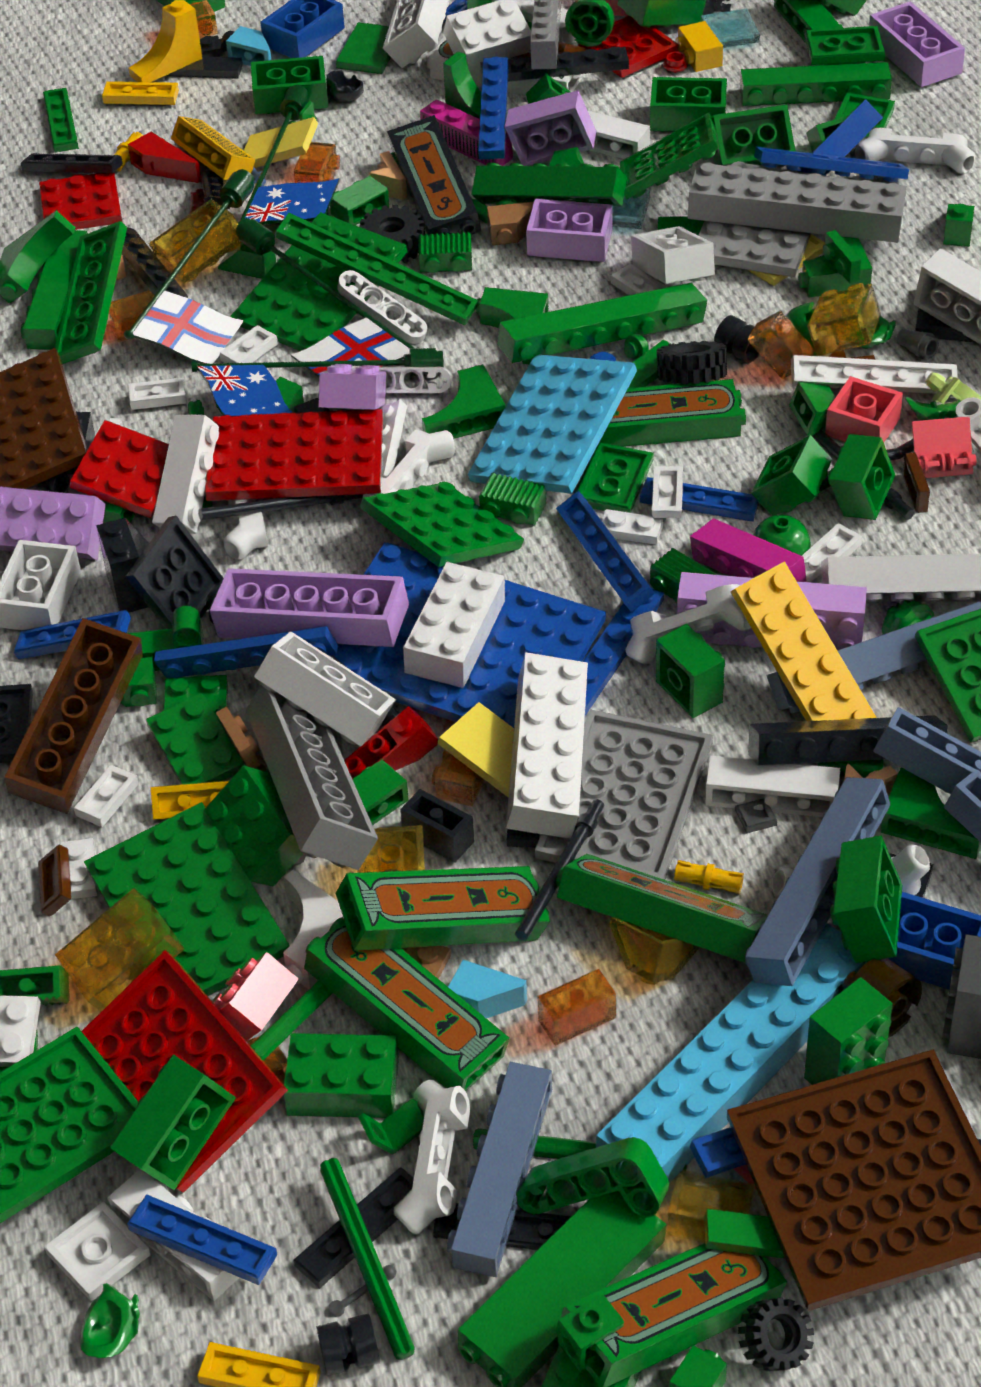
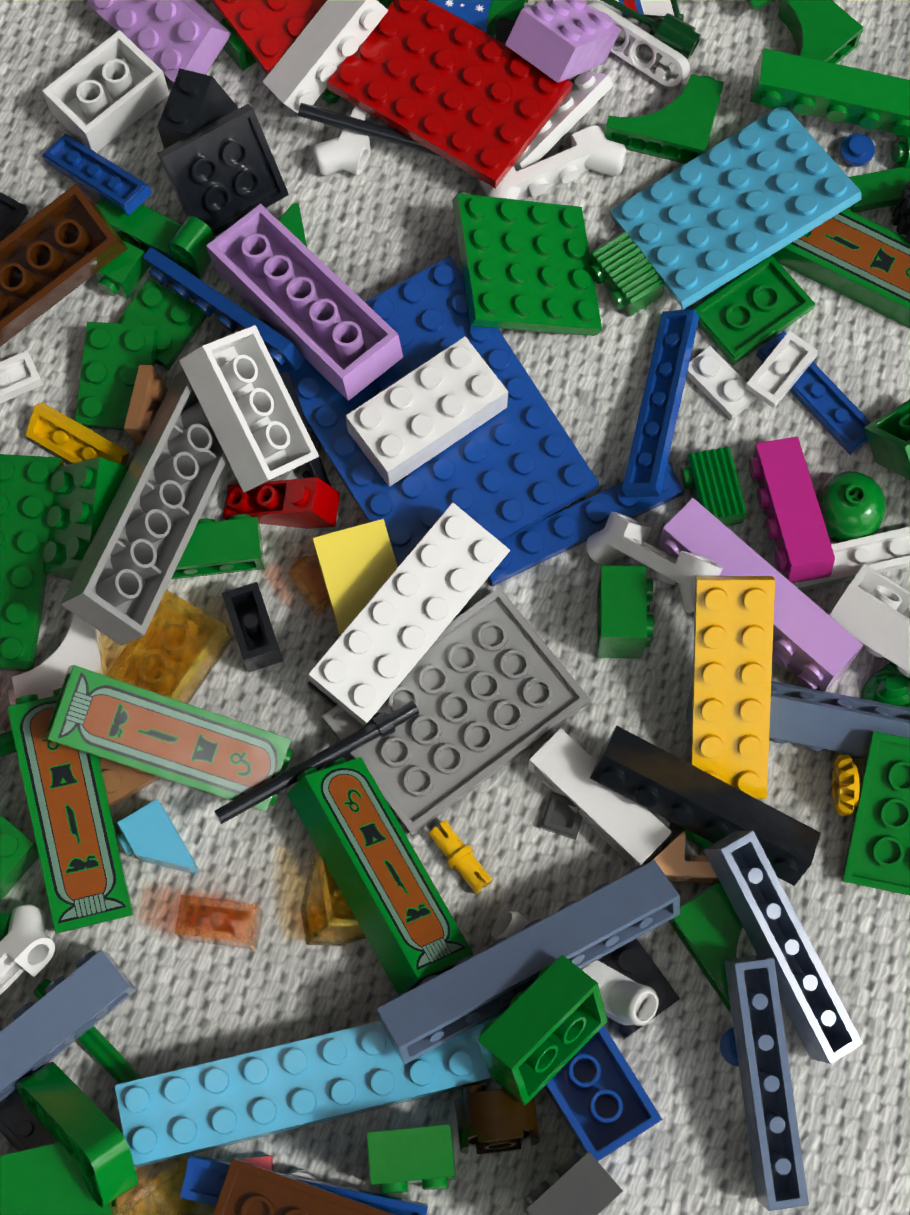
camera: 35 degrees right, 25 degrees up
(925, 682) = (845, 785): none -> yellow gear

